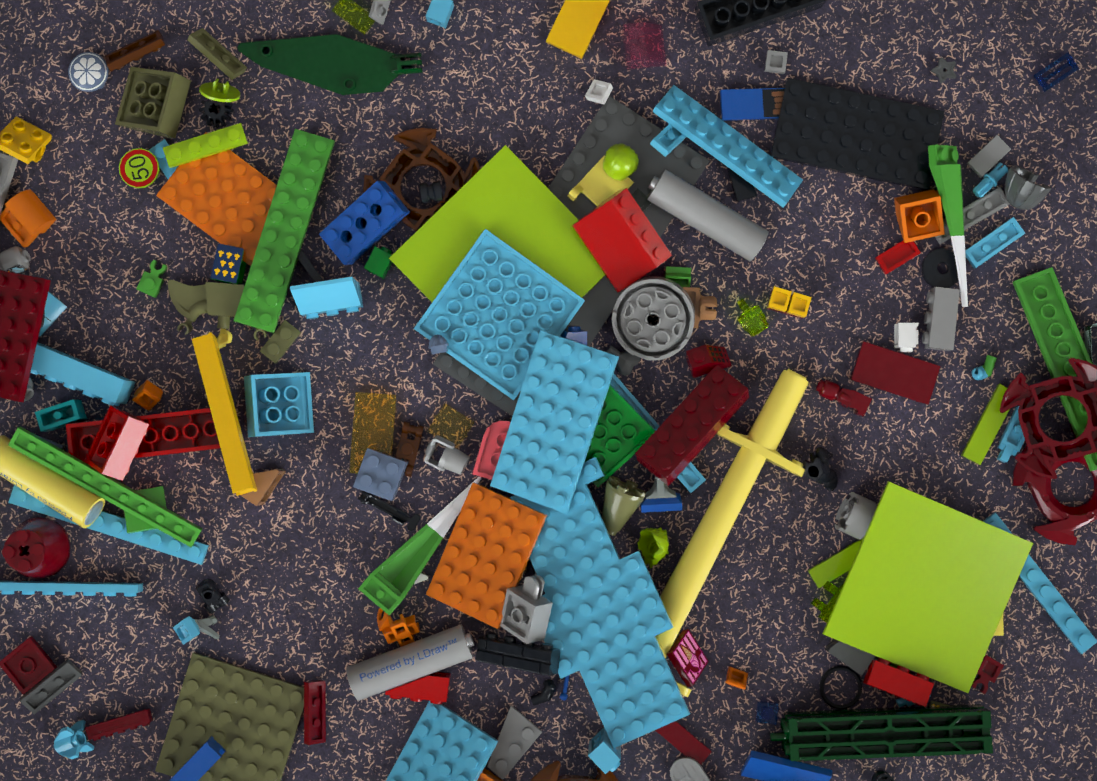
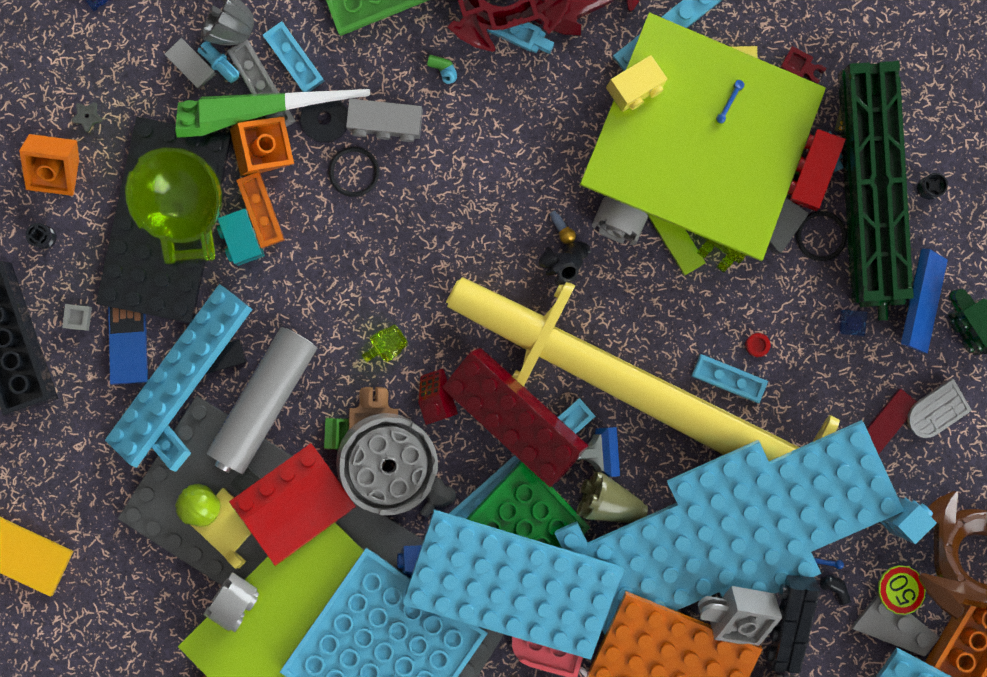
camera: 85 degrees left, 0 degrees up
(543, 747) = (901, 590): none -> piece
(544, 189) = (231, 601): none -> light grey brick
(599, 91) = (113, 530): white plate -> none
(643, 45) = (56, 477): clear pink slope -> none
(653, 545) = (658, 460): lime hair -> none
(687, 658) = (792, 419): tile -> none
(720, 607) = (729, 378): none -> medium azure tile
(736, 678) = (813, 359): orange slope -> none
(748, 631) = (757, 345): none -> red tile
(783, 302) = (369, 298): yellow hips -> none
(842, 198) = (240, 237): none -> teal brick
(843, 470) = (566, 234): none -> piece
(844, 36) = (47, 236): none -> black wheel
(845, 397) = (479, 232): dark red piece -> none
(865, 214) = (260, 210): none -> orange plate
(875, 145) = (175, 200): none -> clear neon green windscreen
(895, 373) = (449, 173): dark red tile -> none
(897, 256) = (310, 171): red tile -> none
(904, 39) = (50, 164): none -> orange slope
(905, 336) = (406, 161): white window -> none
(914, 288) = (359, 193): none -> black tyre
(969, 617) = (738, 85): none -> blue hinge
(973, 531) = (637, 83): none -> light yellow brick
(986, 428) = (514, 66): lime tile -> none

